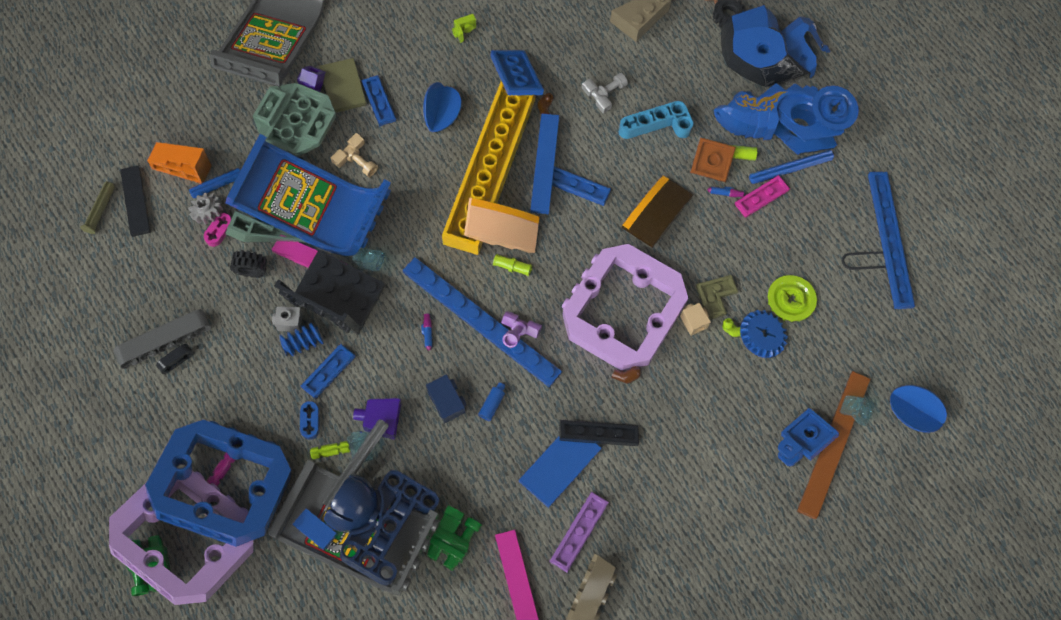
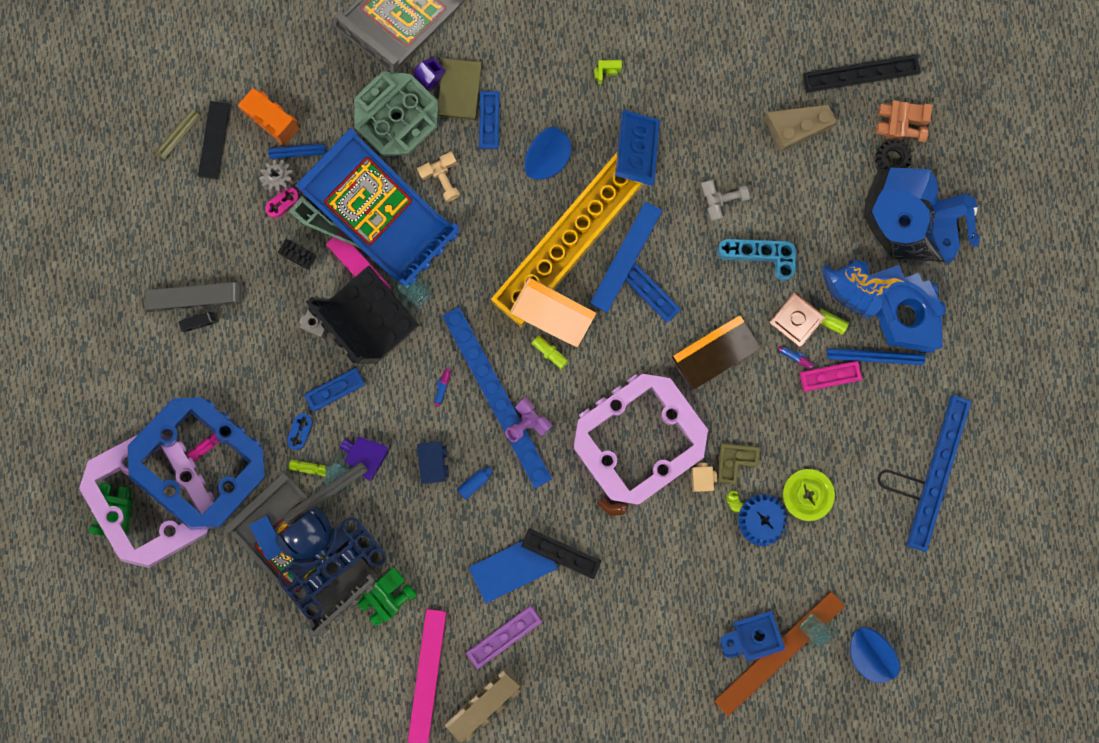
camera: 30 degrees right, 15 degrees up
(301, 339) = (319, 350): blue piece -> none
(544, 103) = (653, 190): reddish brown arm -> none
(846, 111) = (955, 327): blue gear -> none

